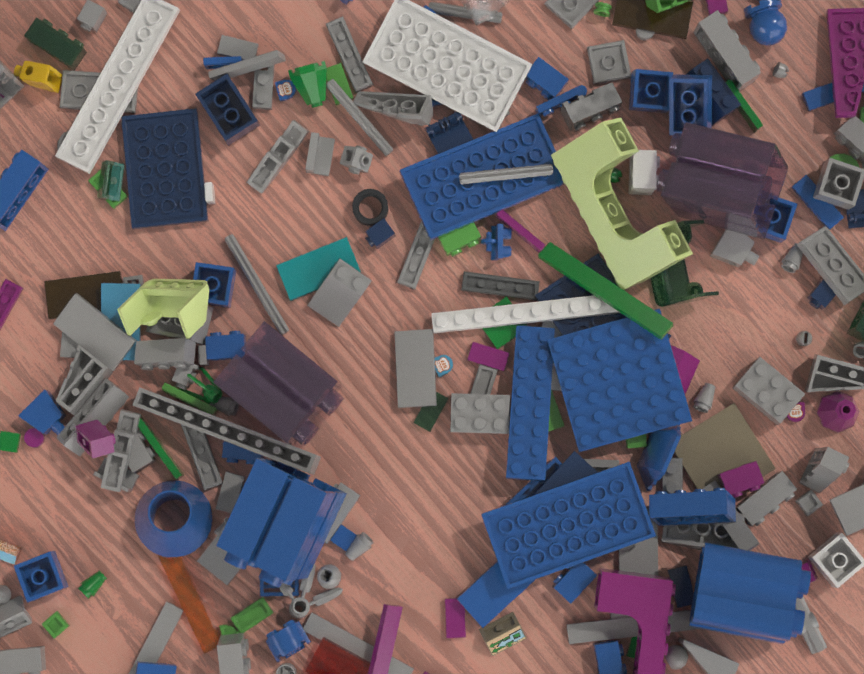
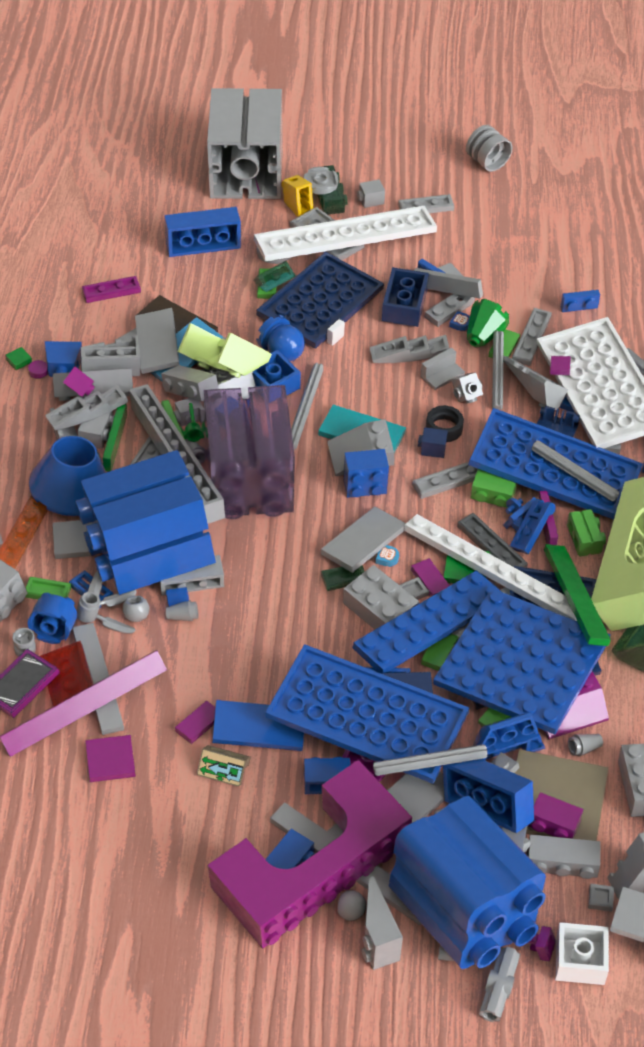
camera: 40 degrees right, 35 degrees down
(46, 46) = (322, 180): none -> light grey tile
(187, 245) = (281, 336): none -> blue tile
(367, 314) = (365, 473): none -> blue brick
(406, 77) = (560, 365): none -> magenta tile
(519, 251) = (532, 525): none -> blue plate
(555, 217) = (586, 532): none -> bright green brick
(644, 527) = (430, 760): none -> light grey axle

